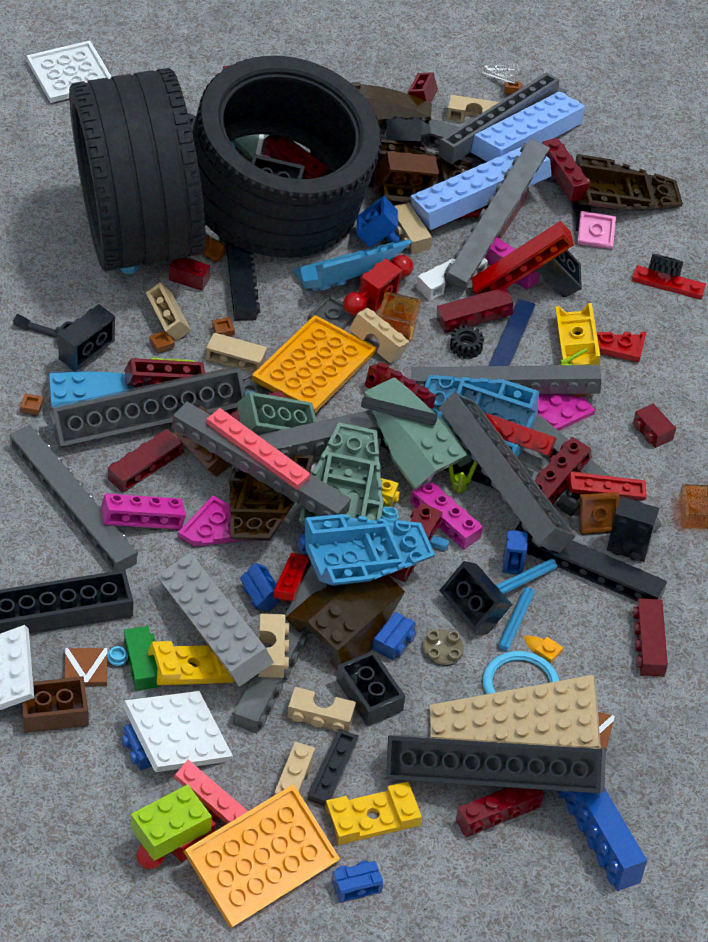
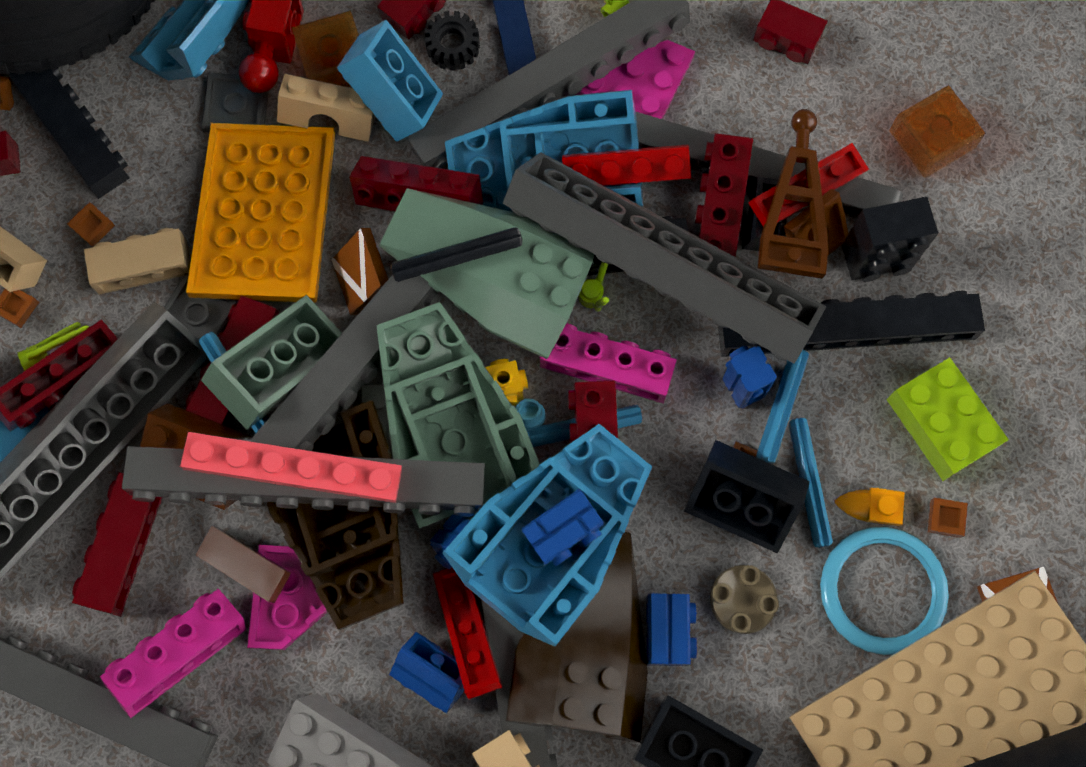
camera: 25 degrees left, 25 degrees up
(200, 497) = (243, 564): none -> reddish brown tile
(349, 404) = (359, 270): none -> dark orange tile
(371, 545) = (563, 527): none -> blue brick
(419, 335) = (390, 81): none -> dark azure brick
(577, 506) = (788, 253): none -> reddish brown plate
(578, 668) = (947, 517): none -> dark orange plate
(609, 627) = (946, 419): none -> lime brick
(651, 637) = (1010, 399): dark red brick -> none

